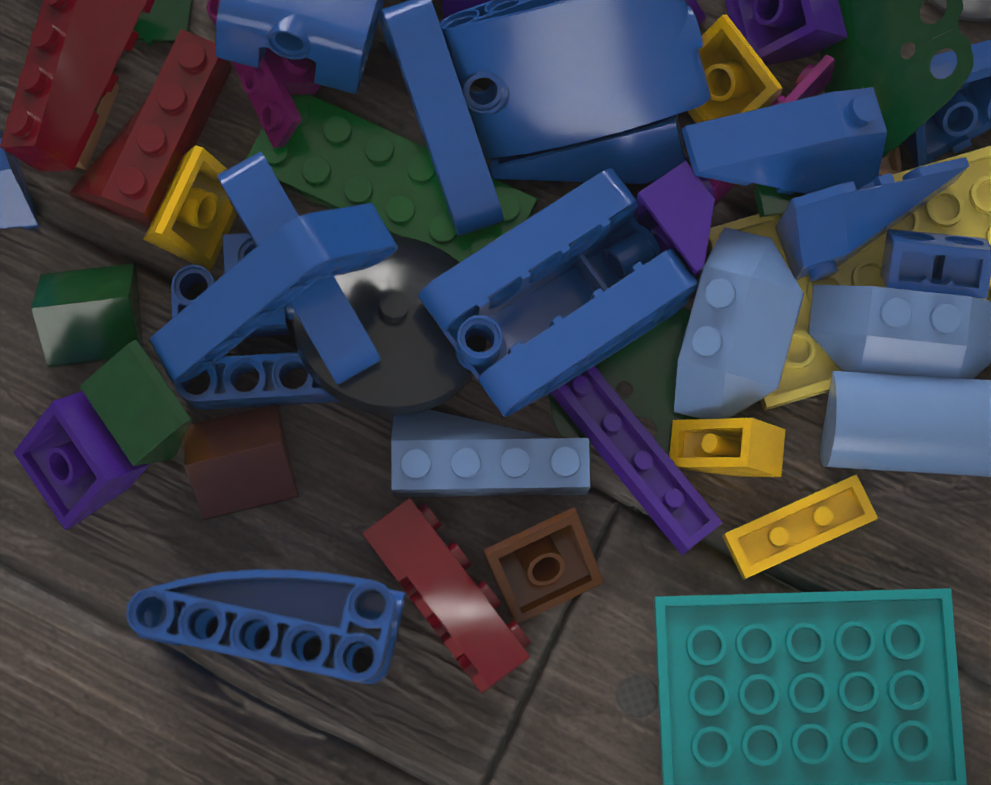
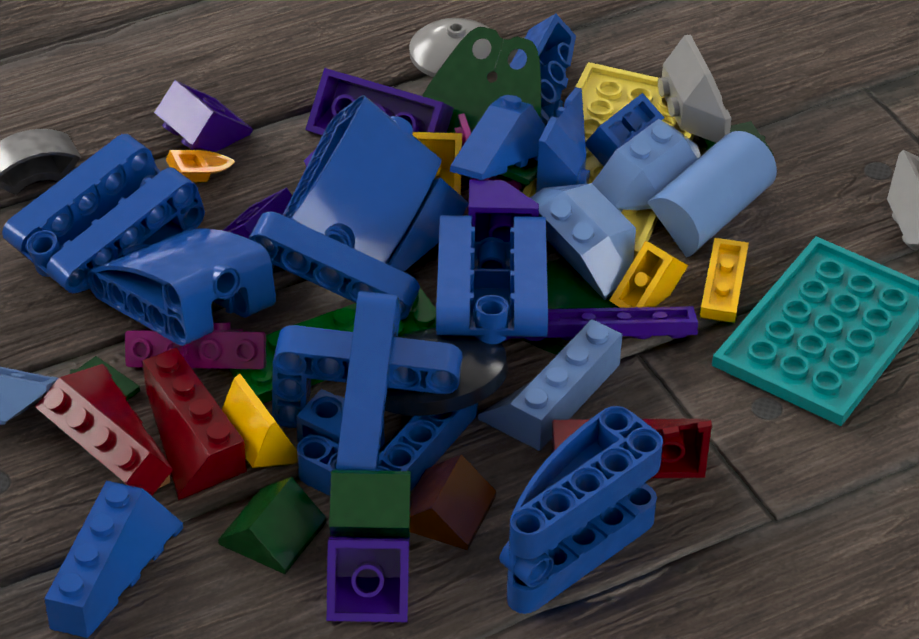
camera: 55 degrees left, 35 degrees down
(543, 565) = (648, 386): reddish brown slope -> none

